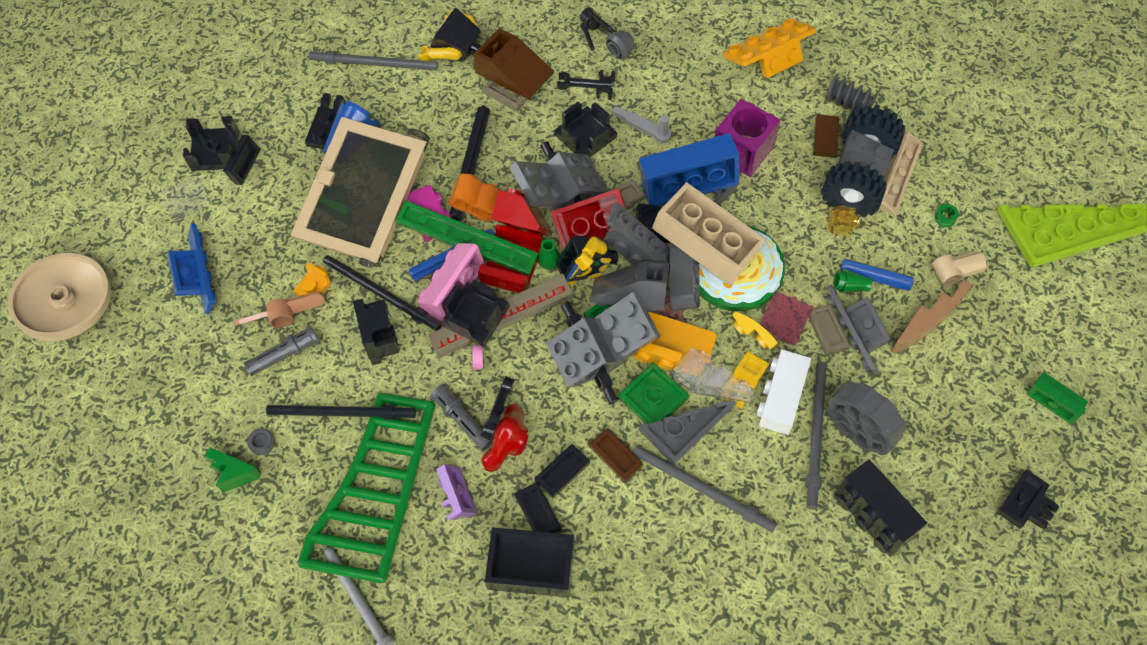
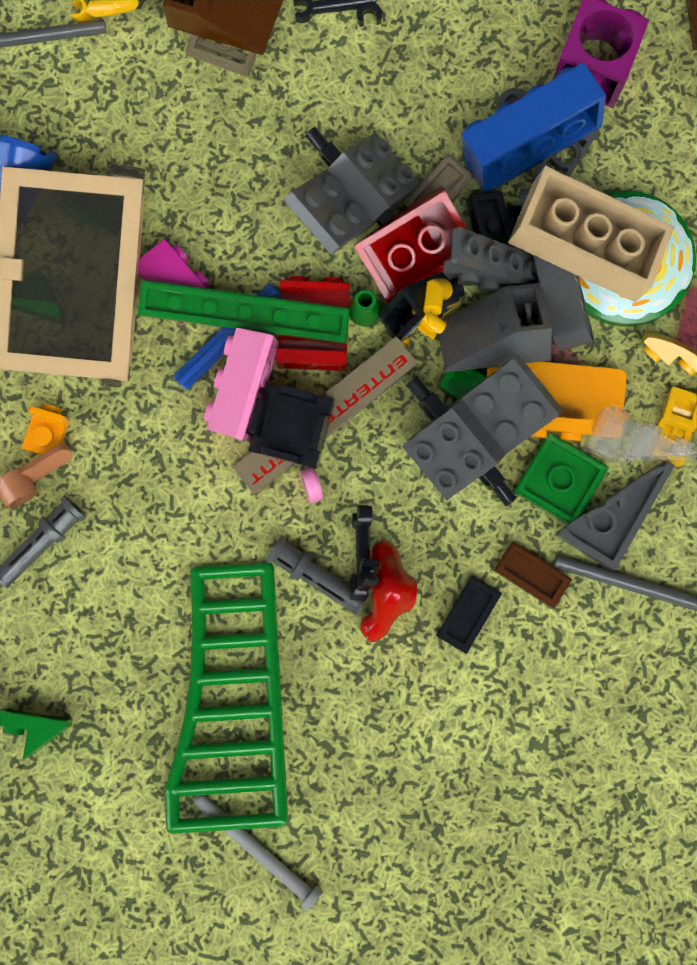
camera: 15 degrees left, 20 degrees up
(261, 441) = (56, 676): dark grey tile -> none
(375, 330) = (162, 484): black panel -> none
(388, 412) = (216, 597): black bar -> none
(417, 314) = (209, 440): black bar -> none
(457, 491) = (341, 679): medium lavender plate -> none
(473, 150) = (206, 181): black axle -> none
(473, 197) = (235, 241): orange brick -> none
(514, 210) = (312, 269): red slope -> none
(530, 562) = (467, 754): black piece -> none
(537, 509) = (452, 677): black tile -> none
(585, 129) = (360, 88): black panel -> none
(660, 132) = (468, 66): light grey piece -> none

